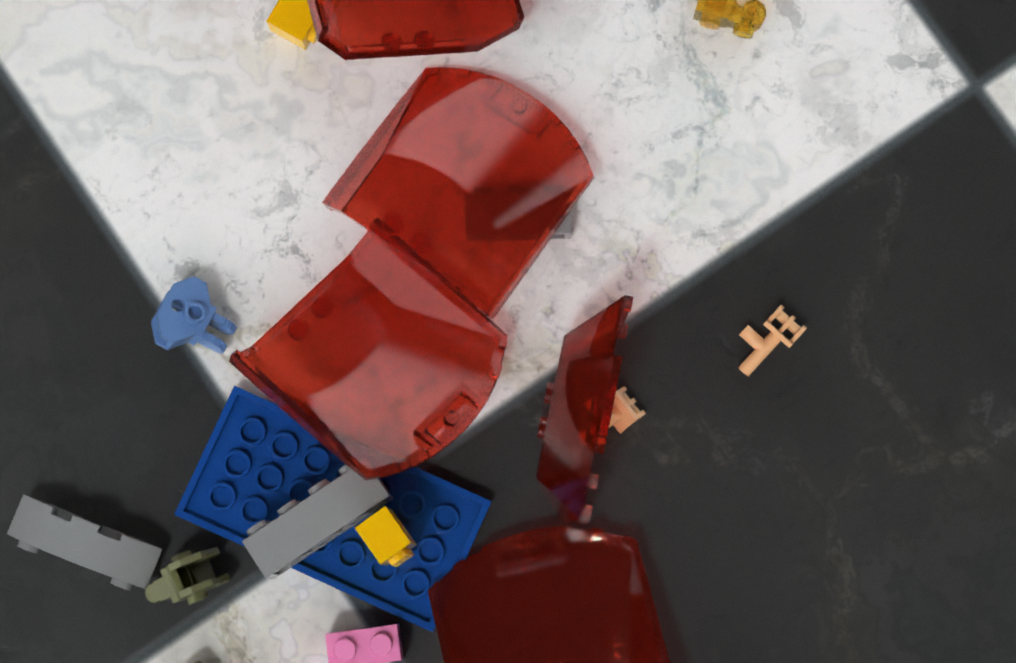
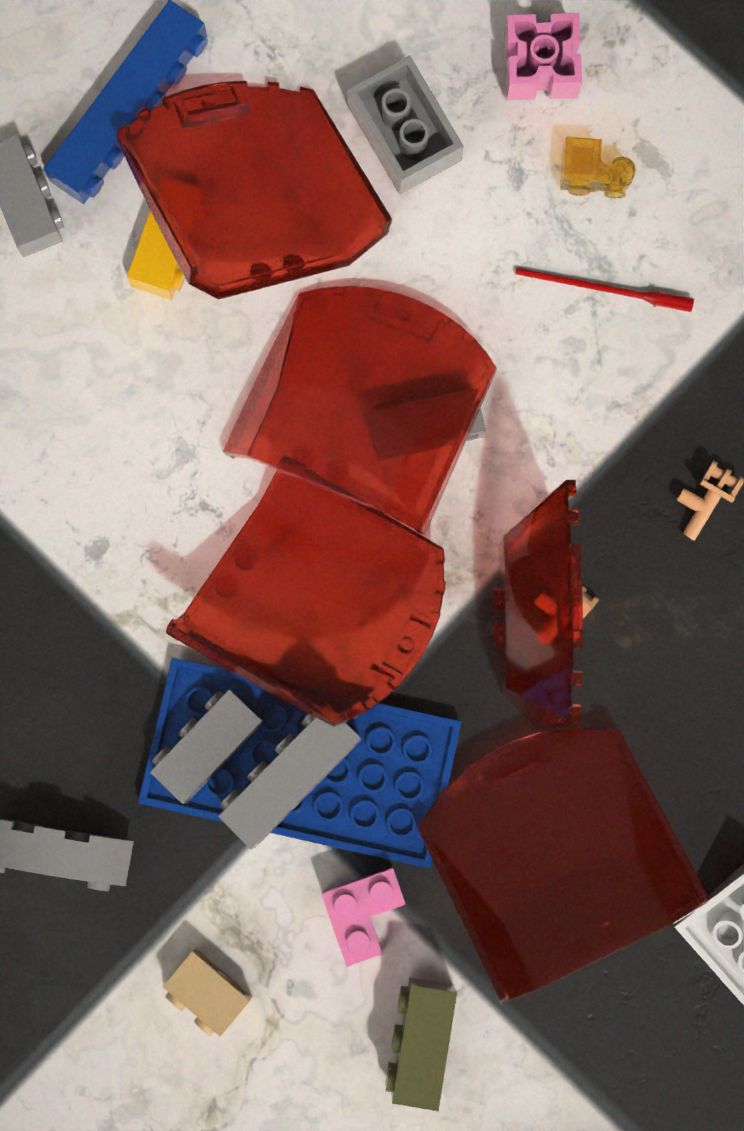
camera: 15 degrees left, 0 degrees up
(186, 578) = (165, 866): olive hinge -> none
(192, 317) = (107, 597): medium blue hinge -> none
(247, 474) = (205, 745): none -> light grey brick
(386, 537) = (367, 781): yellow brick -> none
(759, 139) = (654, 297): none -> red piece

